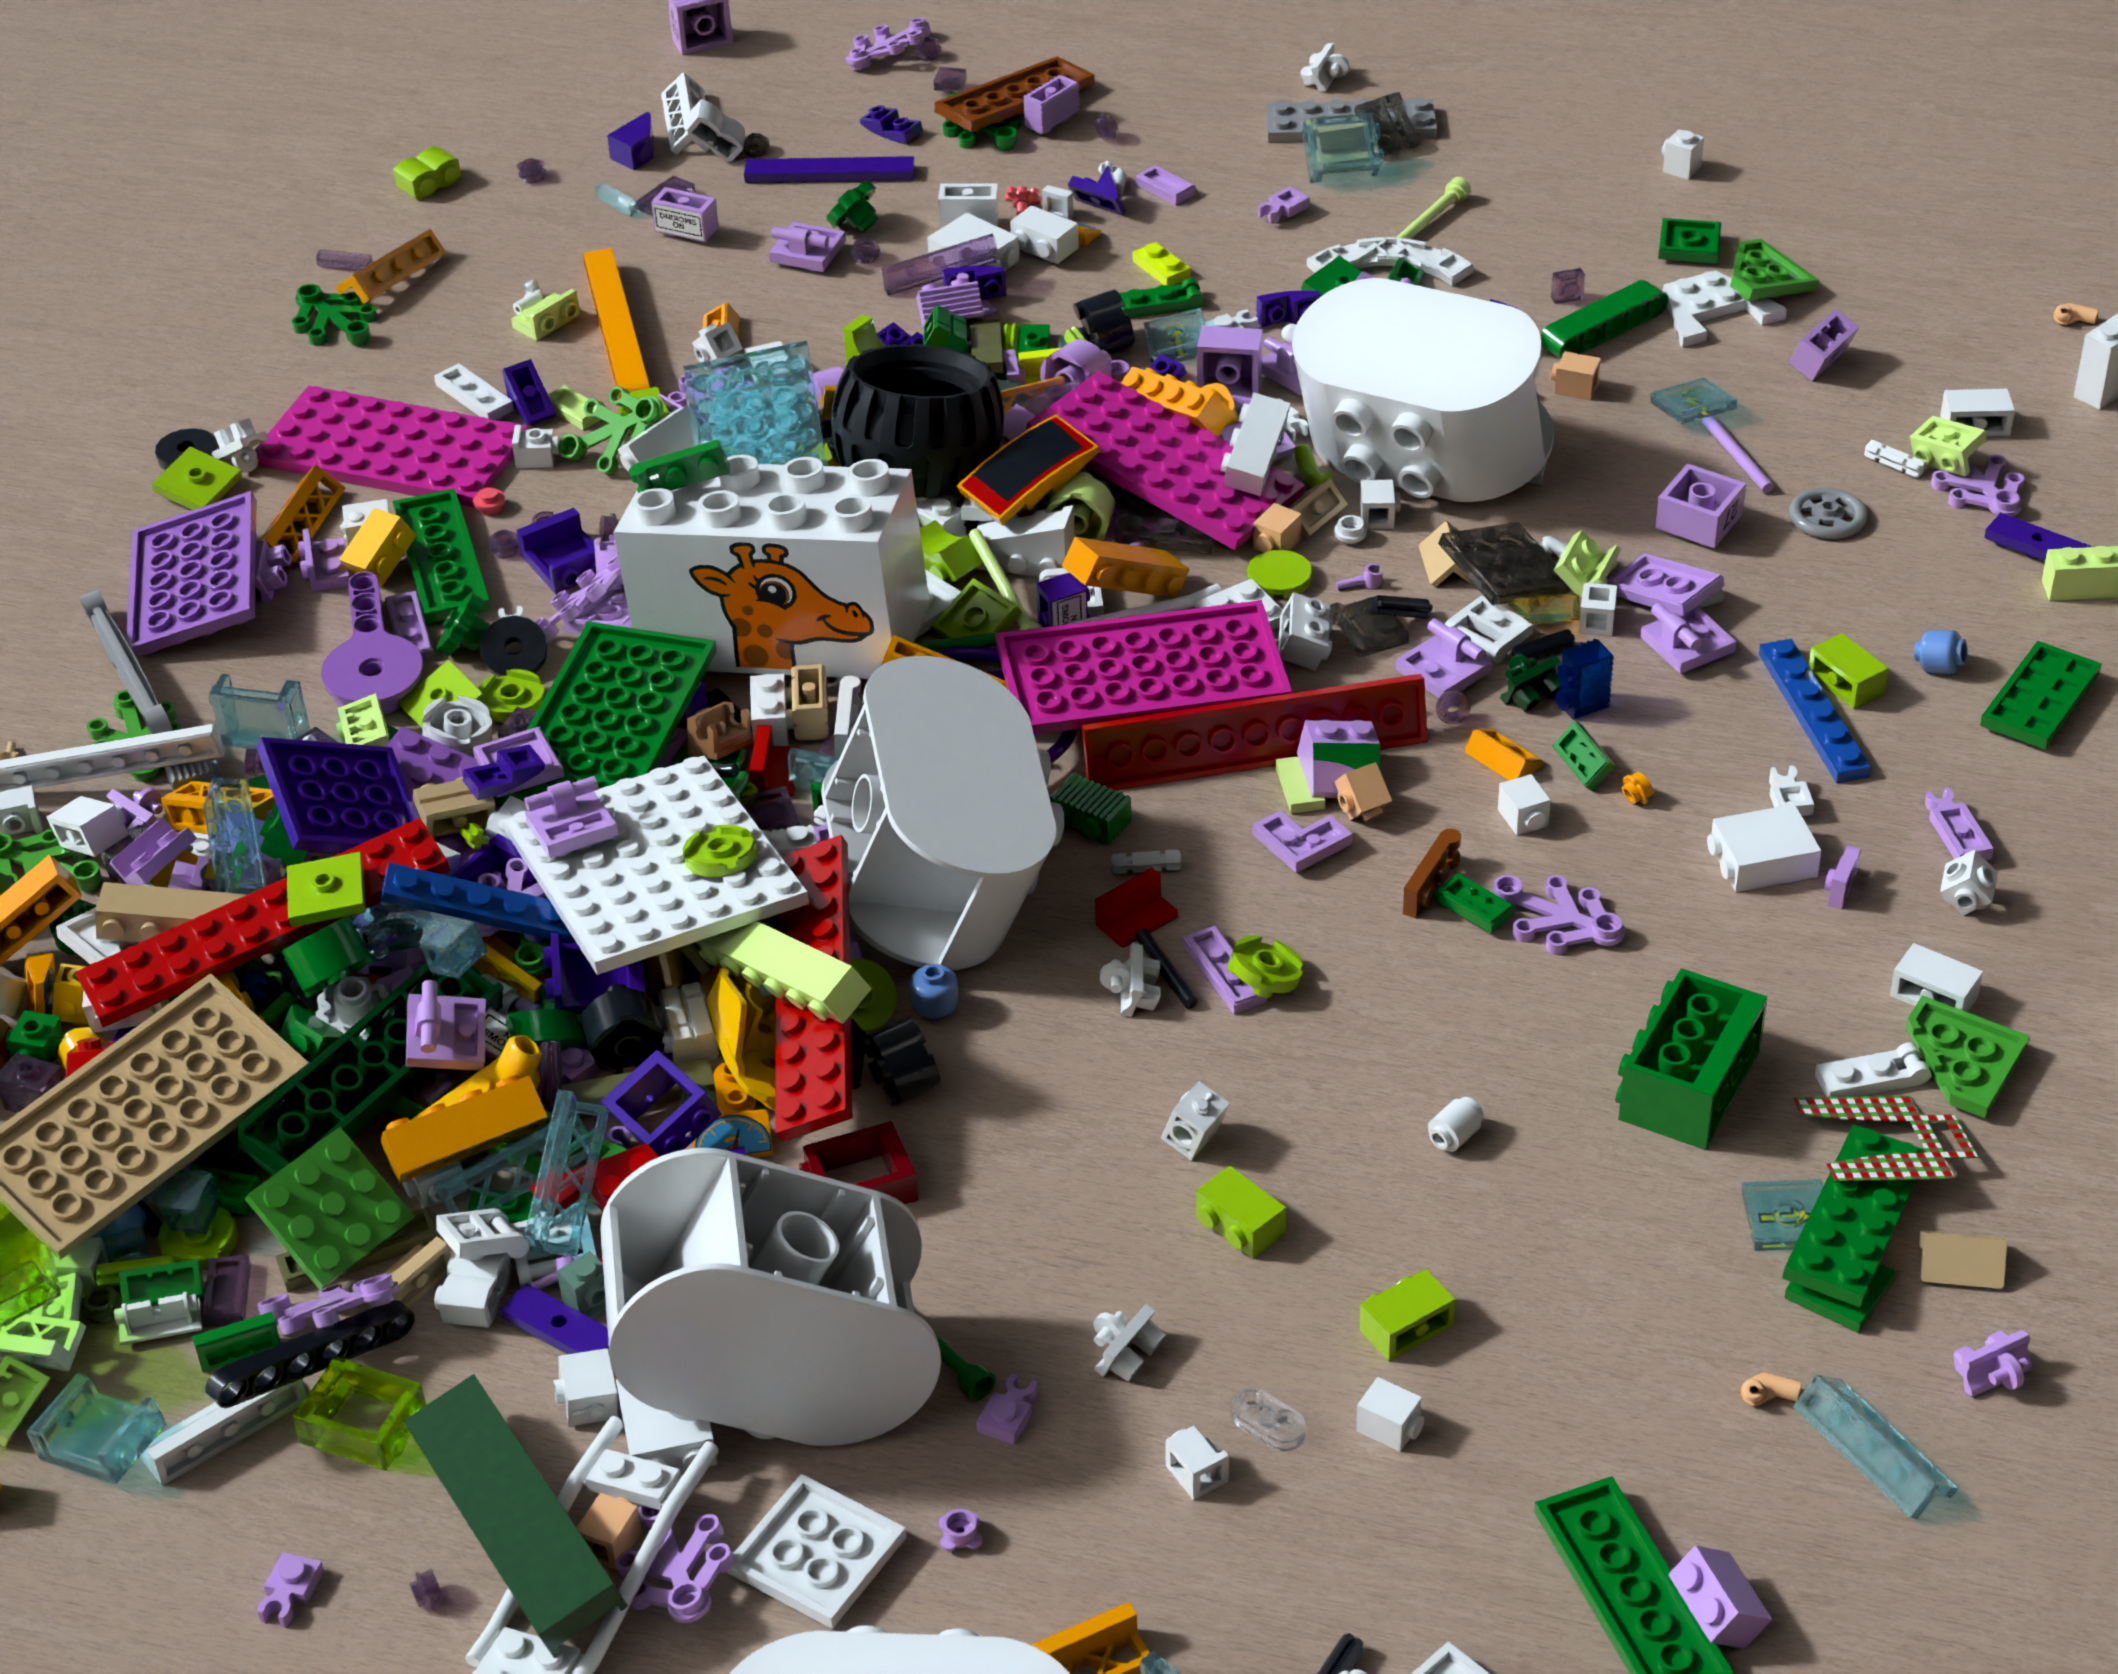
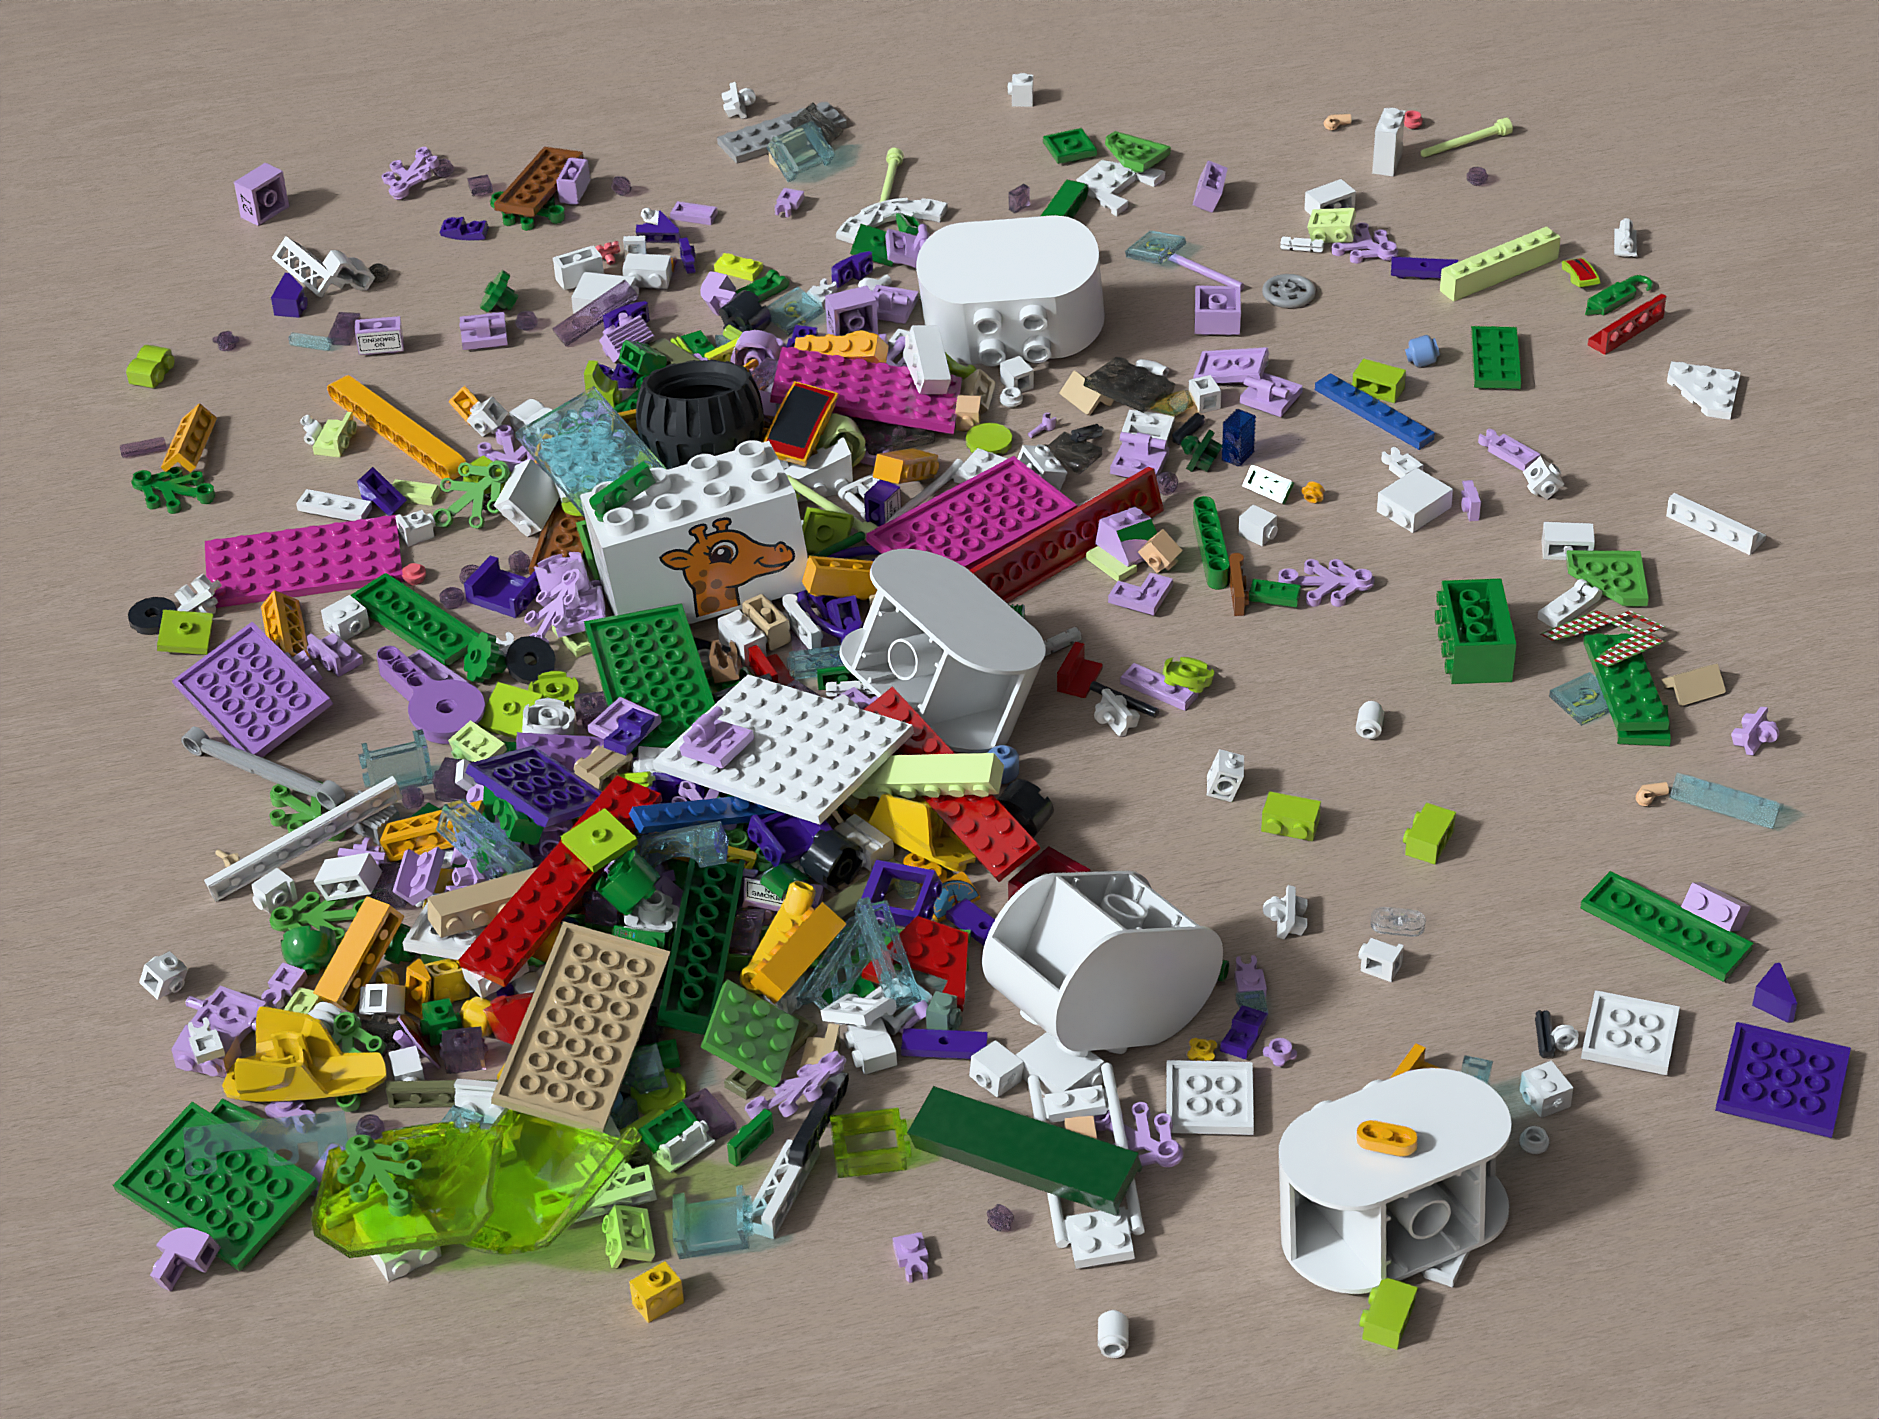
camera: 30 degrees left, 0 degrees up
(378, 545) = (373, 627): yellow brick -> none
(445, 1030) = (739, 898): lavender plate -> none
(720, 852) = (834, 722): lime tile -> none
(829, 169) = (447, 273): dark purple tile -> none
(866, 1490) = (1201, 1049): none -> yellow plate
(944, 1479) = (1244, 1032): none -> dark purple slope
(986, 1446) = (1252, 999): none -> clear light blue tile
(1099, 278) = (717, 291): none -> lavender brick
(1110, 230) = (687, 255): none -> dark purple plate
(1389, 1414) = (1466, 889): white brick -> none
(1444, 800) = (1211, 542): none -> green beam
(1502, 754) = (1225, 503): light orange slope -> none
(1585, 562) = (1177, 370): yellowish green bracket -> none

